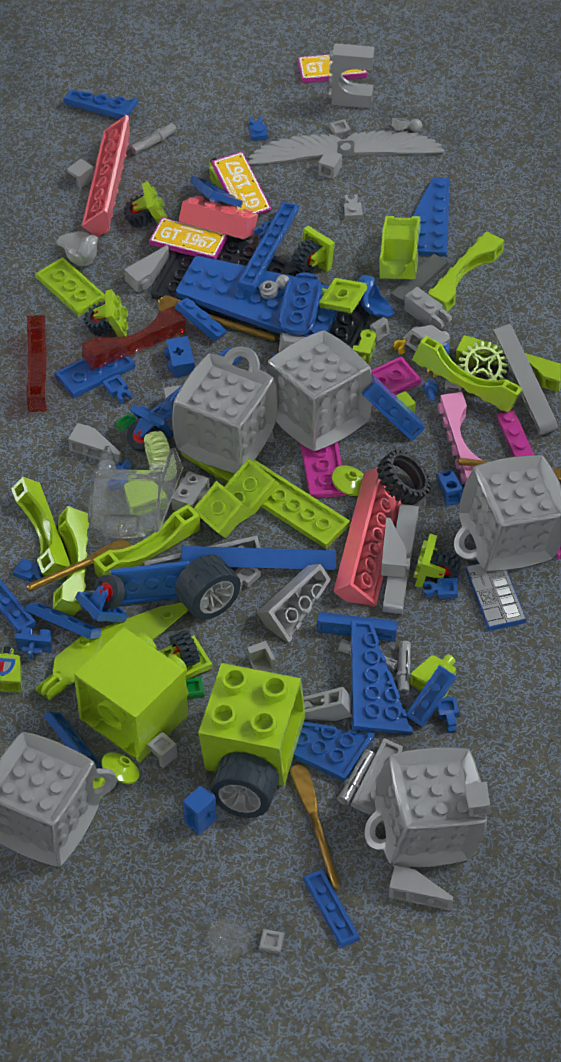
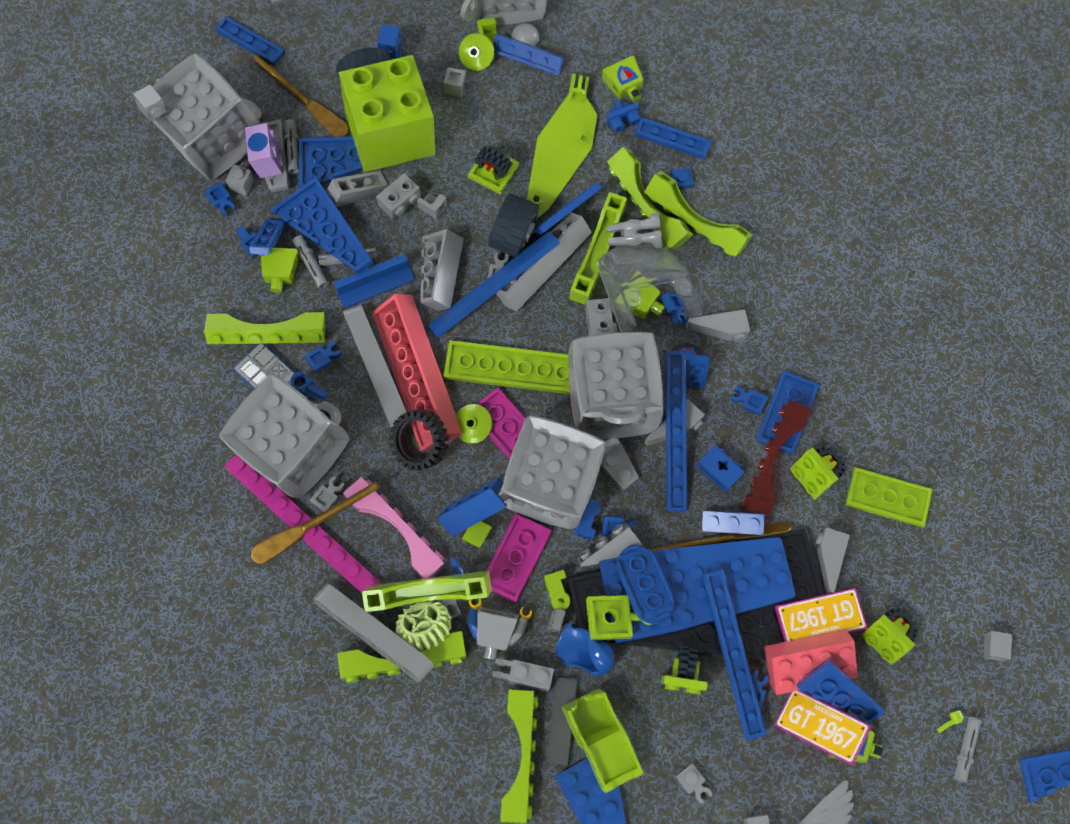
camera: 145 degrees right, 20 degrees up
(37, 363) = (859, 402): clear red arch -> none
(63, 620) = (612, 143): blue tile -> none
(79, 247) = (918, 545): light grey piece -> none
(105, 600) = (590, 166): plate -> none
(106, 178) = (965, 651): coral slope -> none
(108, 528) = (630, 234): none -> light grey piece
(119, 544) = (630, 208): pearl gold piece -> none
(124, 422) = (715, 365): green tile -> none
(132, 692) = (499, 87): lime piece -> none
(145, 155) = (956, 717): none -> lime hand
(156, 447) = (663, 337): yellowish green gear -> none
(195, 688) = (469, 152): green tile -> none
(239, 499) = (554, 331): lime piece -> none
(270, 289) = (682, 601): light grey plate -> none
(295, 668) = (398, 196): none -> light grey brick
(387, 746) = (264, 150): none -> lavender brick
(394, 553) = (377, 350): light grey slope -> none
(436, 563) = (338, 368): plate -> none
(443, 612) = (305, 328): none -> lime arch
(449, 487) = (378, 468): blue leg -> none
(473, 565) = (308, 388): none -> blue axle

